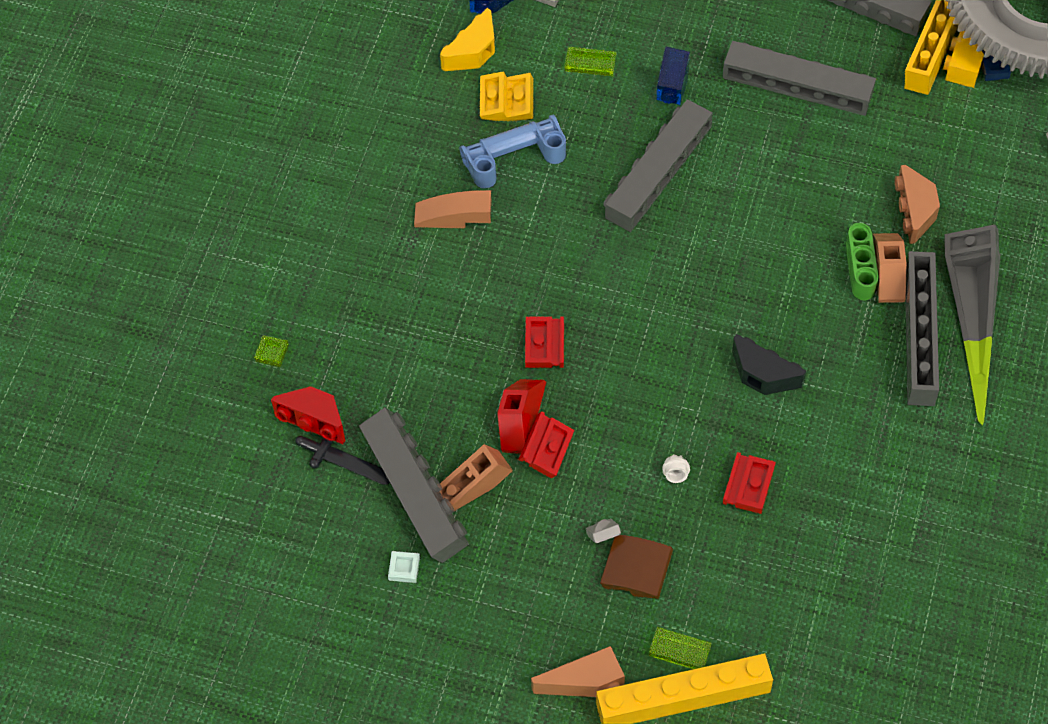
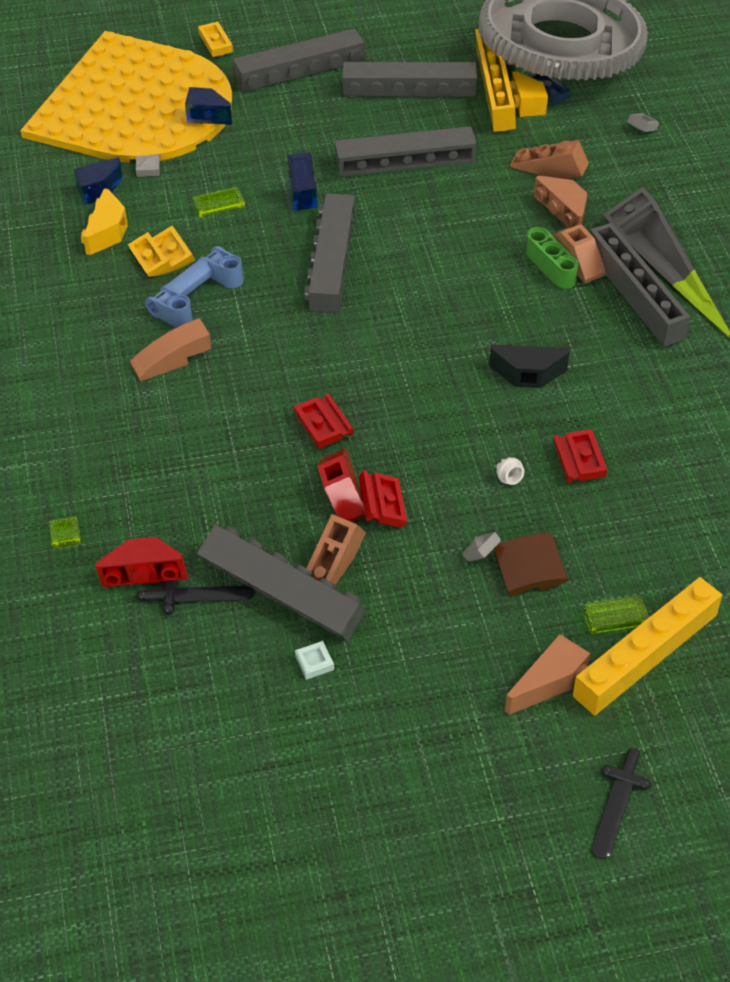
camera: 30 degrees left, 10 degrees down
(939, 151) = (557, 160): none -> nougat slope

